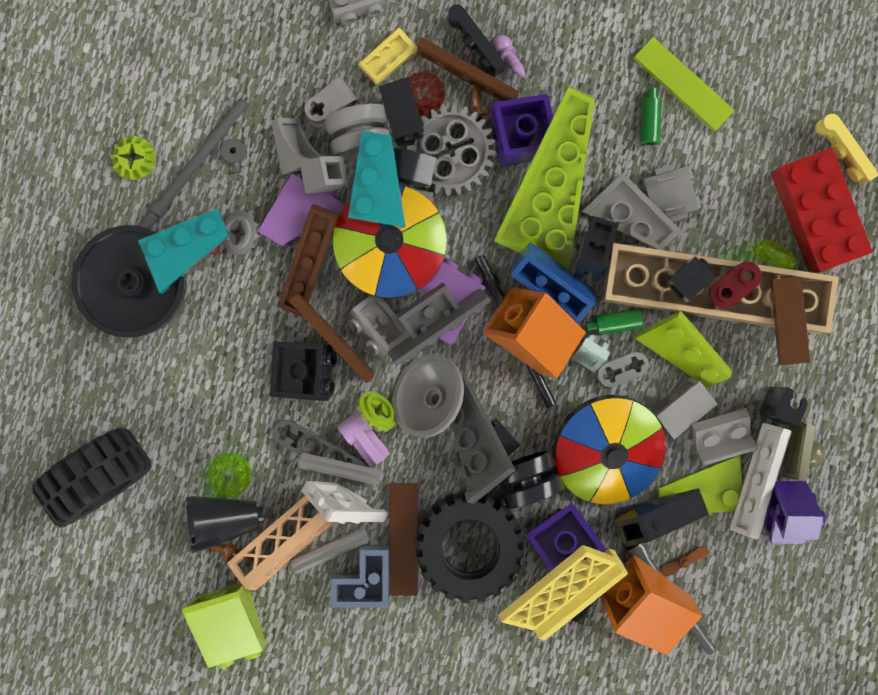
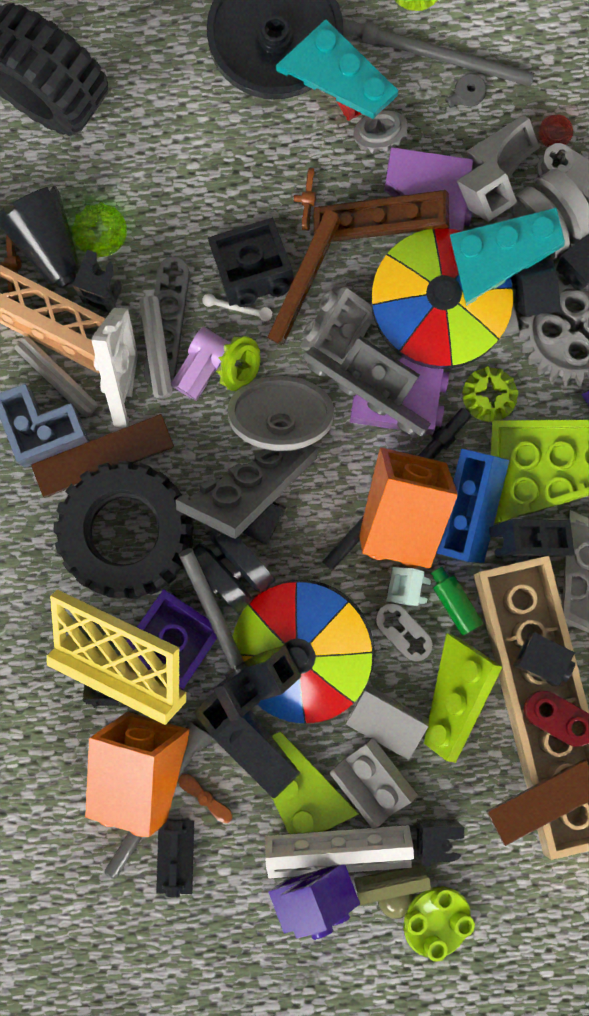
camera: 65 degrees right, 5 degrees down
(269, 308) = (308, 199): none -> dark orange piece
(273, 495) = (93, 284): none -> black hinge
(292, 100) = (555, 130): none -> clear red plate
(344, 376) = (264, 314): none -> white hinge
(479, 244) = (480, 406): none -> lime gear
(559, 506) = (211, 607): none -> dark grey bar
(619, 494) = (256, 680): none -> black brick
(719, 599) = (175, 858): none -> black hinge
(838, 429) = (437, 922): none -> lime dish

